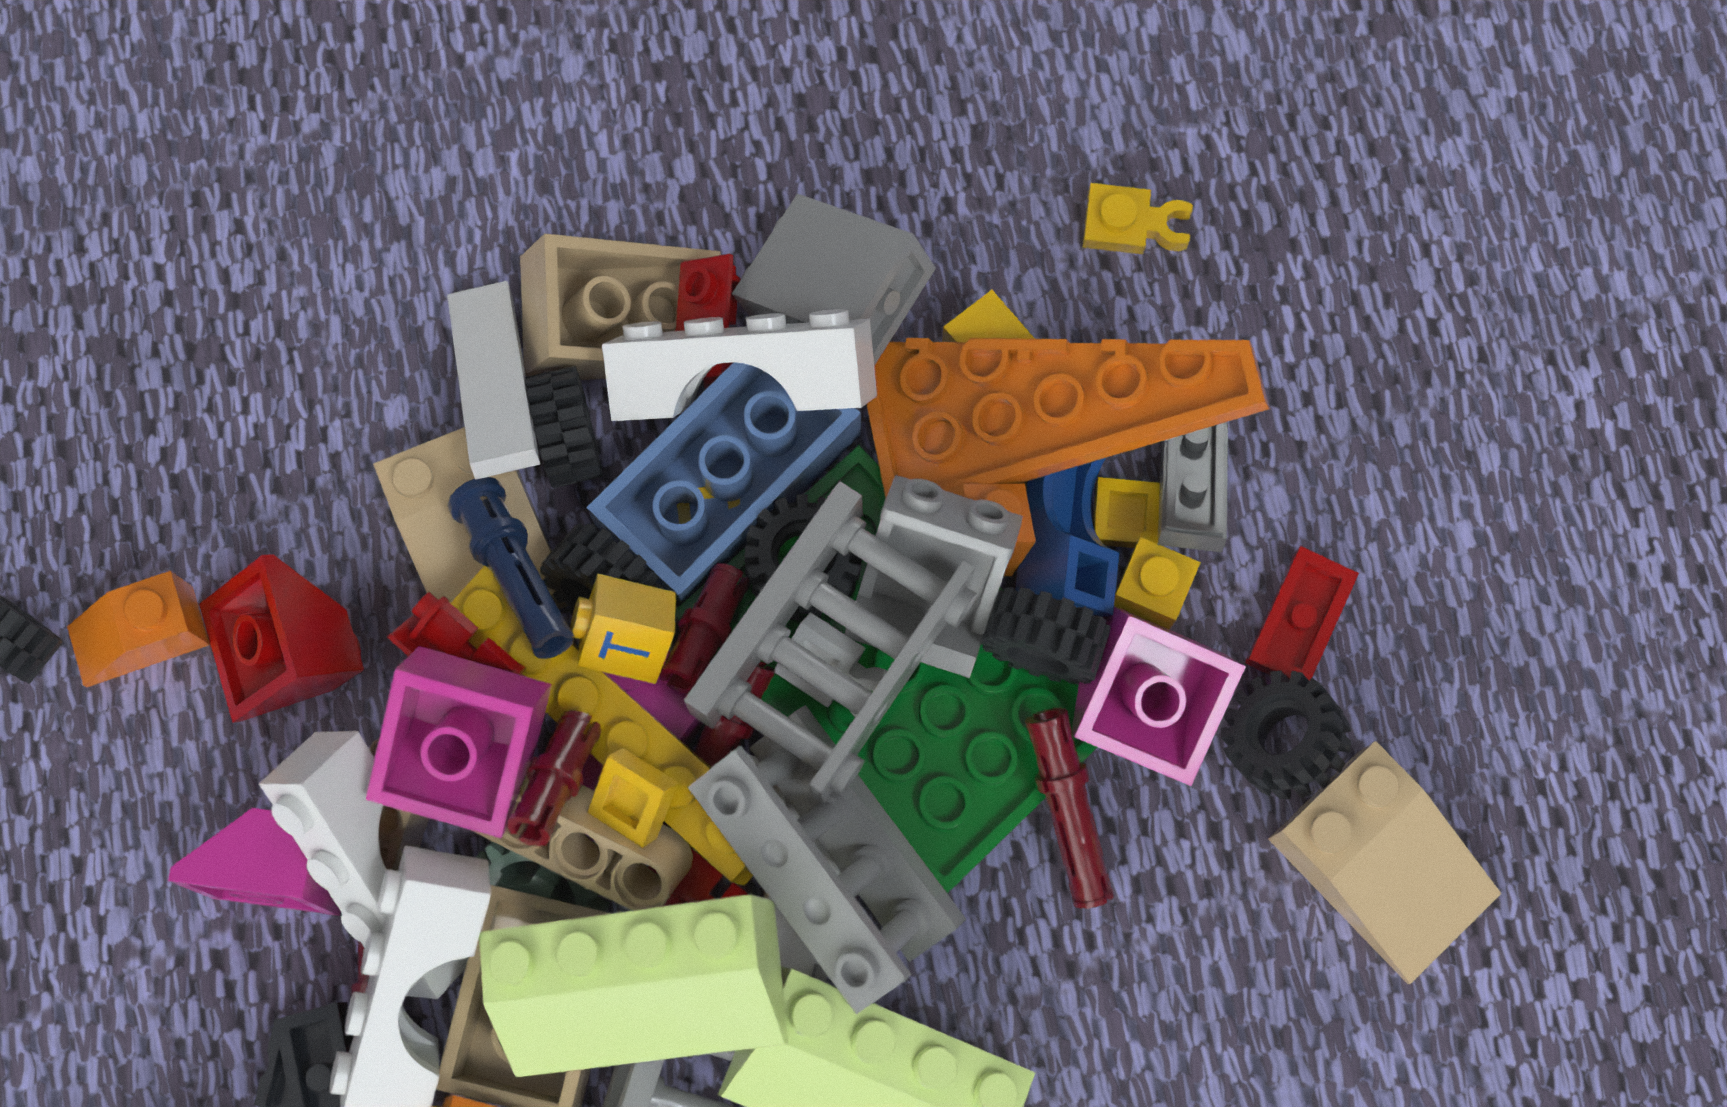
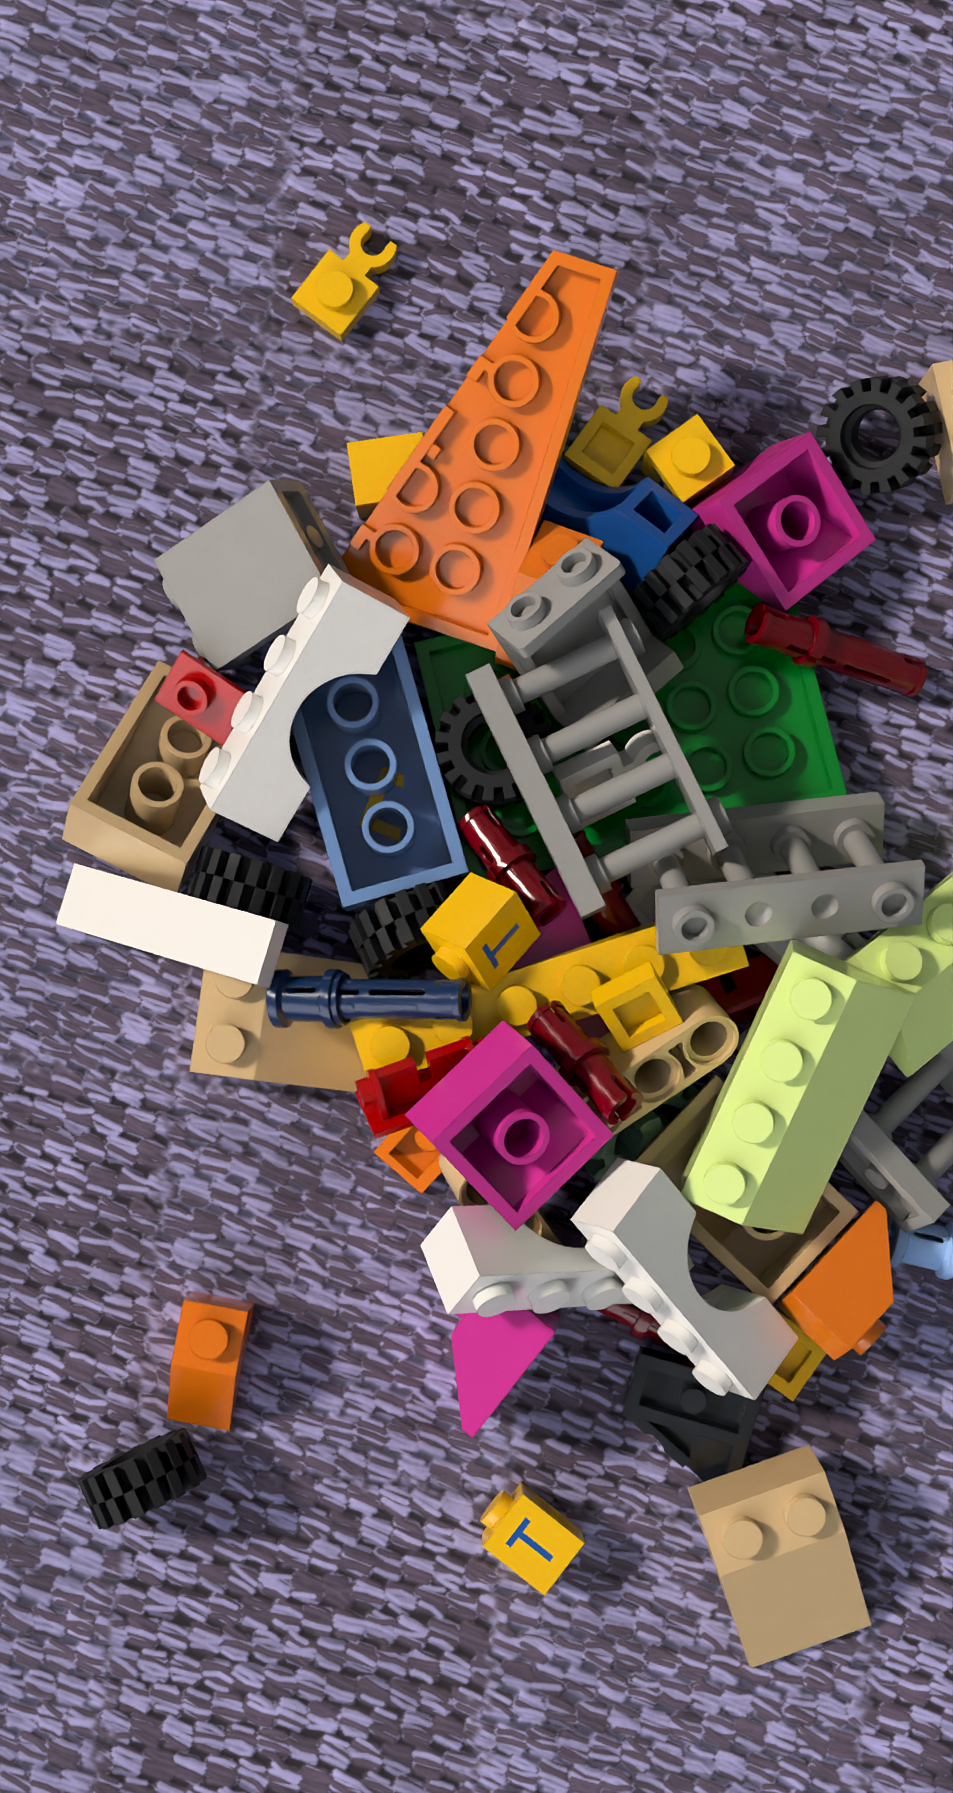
camera: 60 degrees left, 10 degrees up
(118, 1000) = (530, 1536): none -> yellow brick
(277, 639) = (290, 1241): red slope -> none
(1194, 490) = (638, 385): dark grey tile -> none
(1302, 615) = (783, 358): red plate -> none

